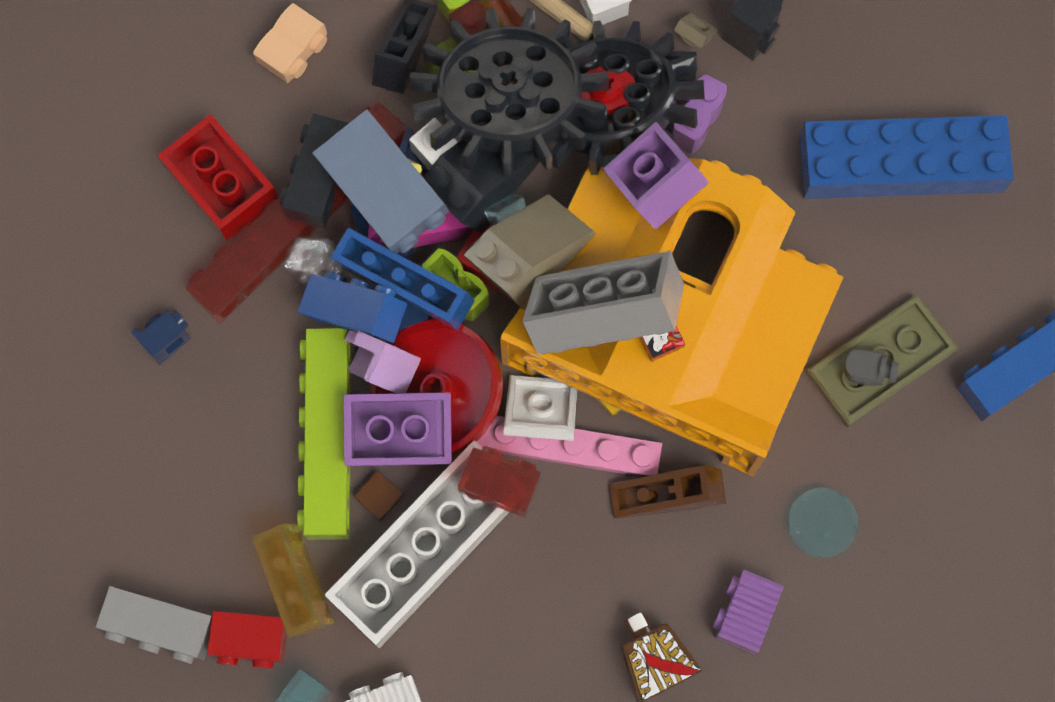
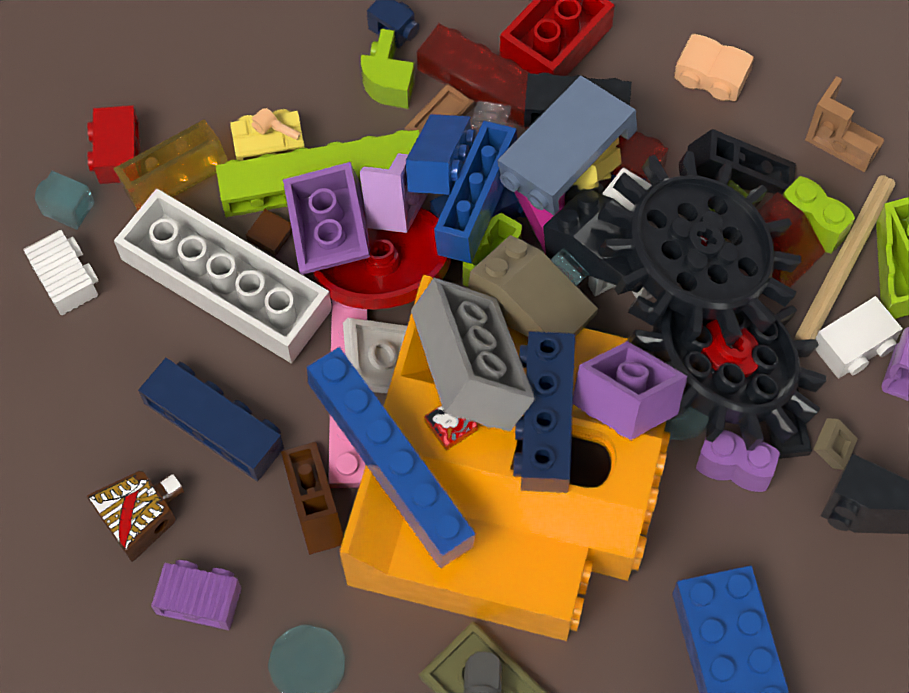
camera: 80 degrees right, 10 degrees down
(155, 625) = (120, 63): light grey brick -> none
(230, 357) = (385, 78): none -> lime brick
(266, 474) = (265, 119): none -> light nougat hand
(276, 481) = (252, 144): none -> light yellow brick
(281, 311) = (446, 102): none -> medium nougat tile
(500, 481) = (285, 315): clear red brick -> none
(574, 576) = (212, 418): none -> dark blue brick
(690, 394) = (390, 457): none -> blue brick
(697, 252) = (548, 420): none -> dark blue brick

